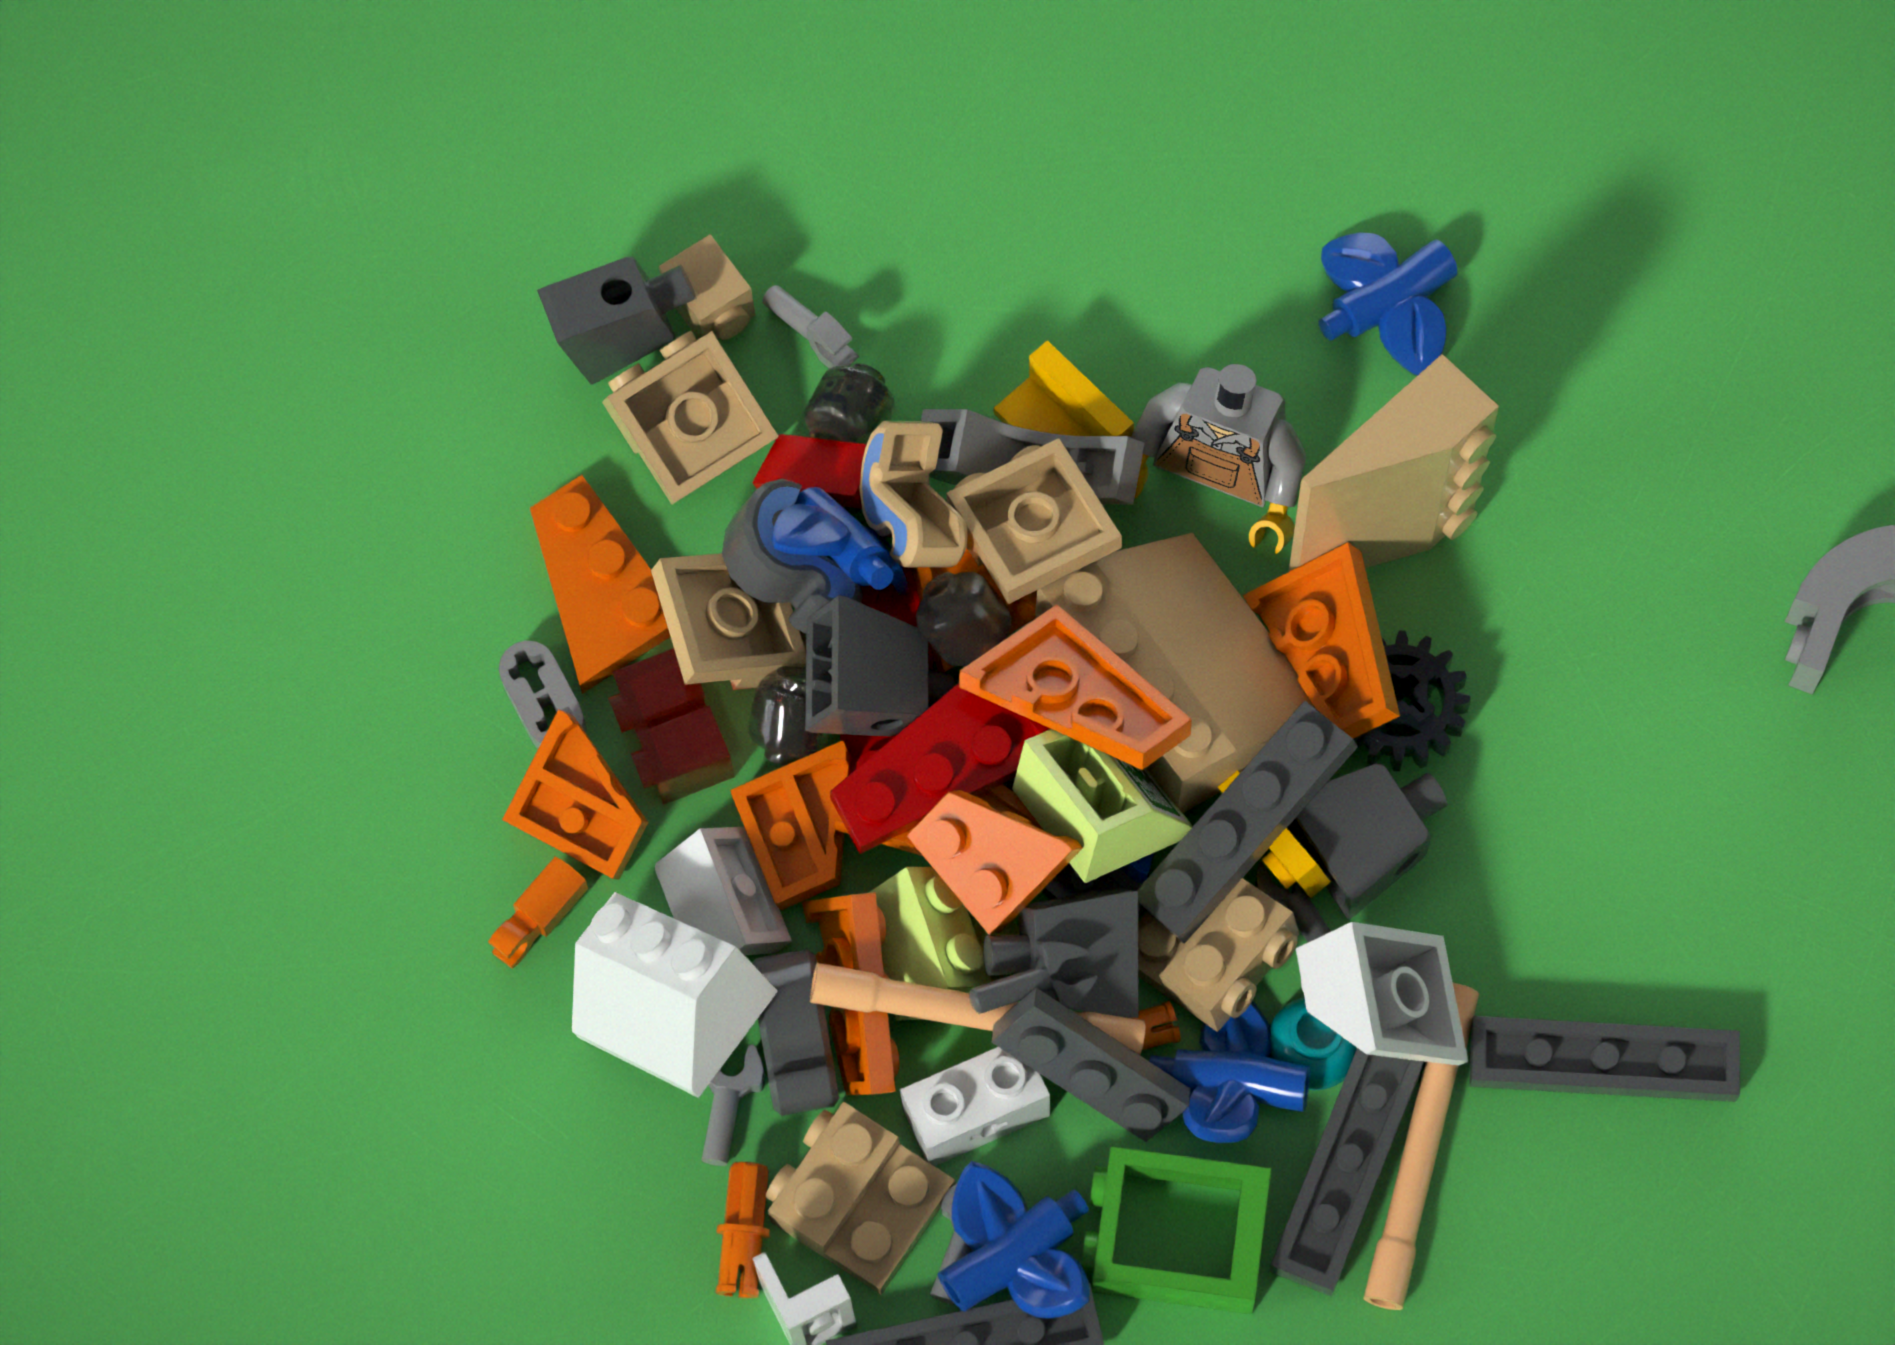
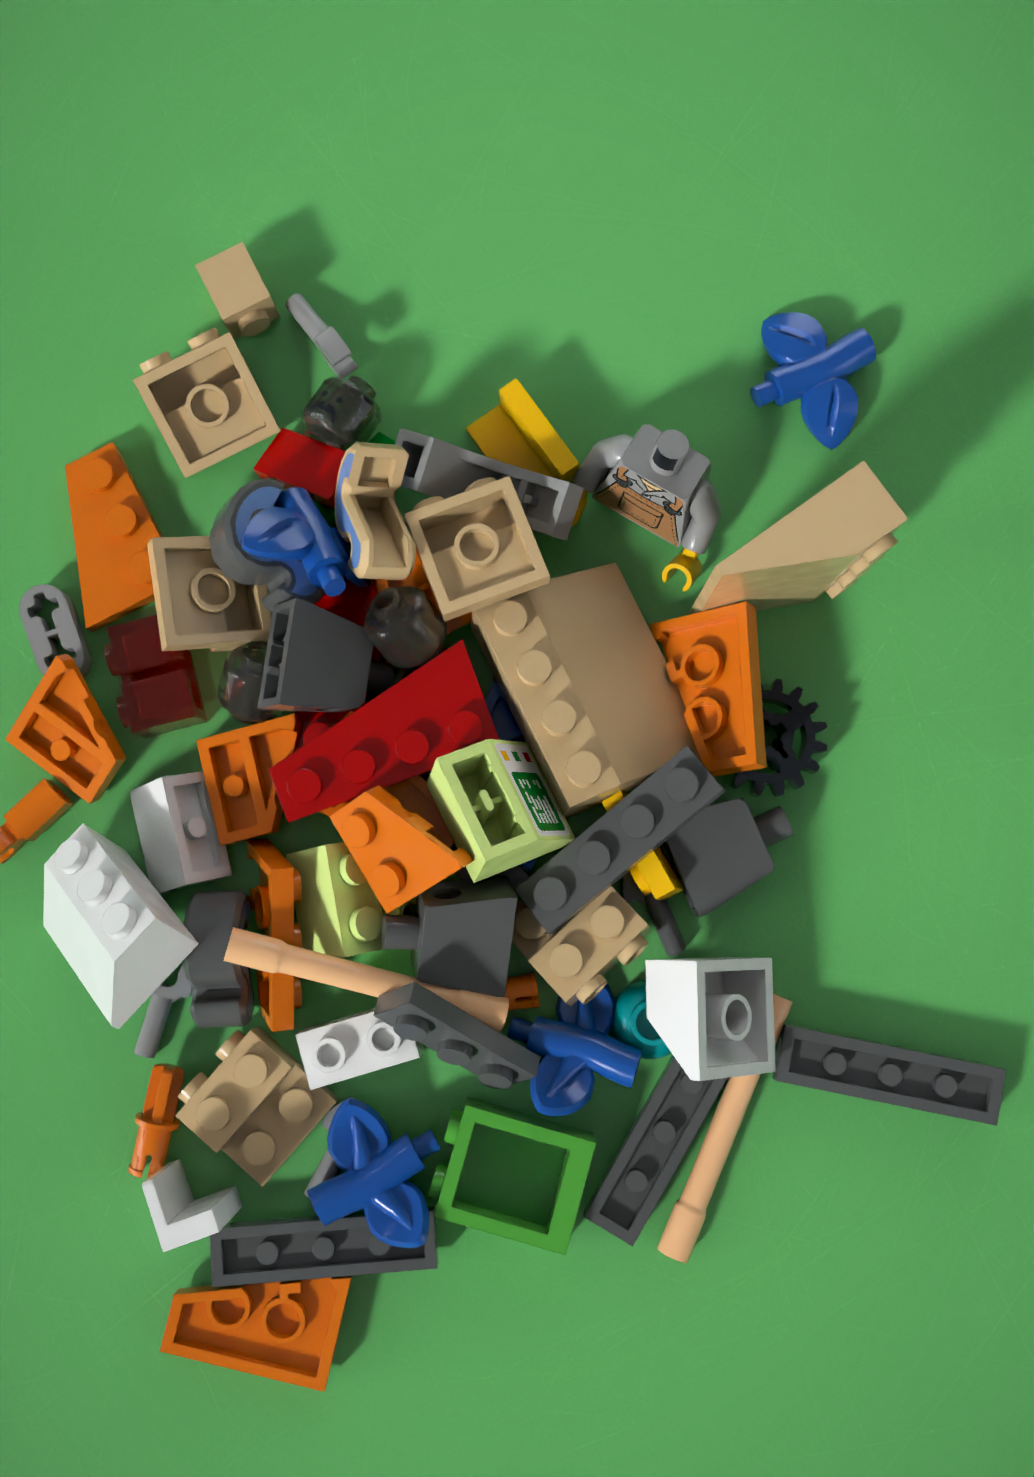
camera: 10 degrees right, 15 degrees up
(614, 314) = (146, 304): dark grey torso -> none
(1017, 986) = (422, 967): dark grey bar -> none
(1078, 688) = (491, 715): orange wing -> none

